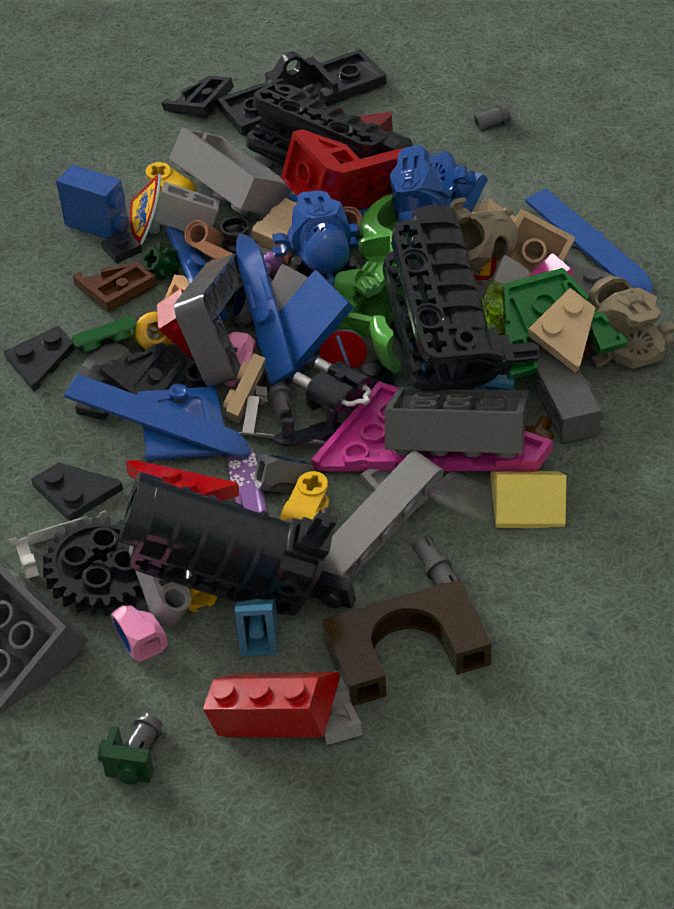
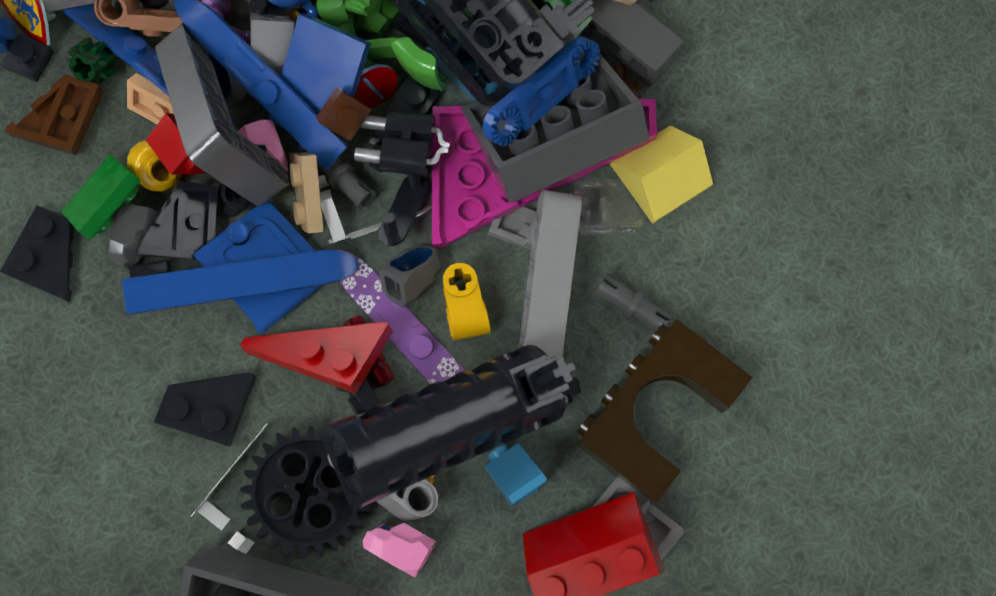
camera: 35 degrees left, 30 degrees up
(305, 346) = (343, 113): none -> reddish brown plate
(457, 383) = (541, 91): none -> blue plate

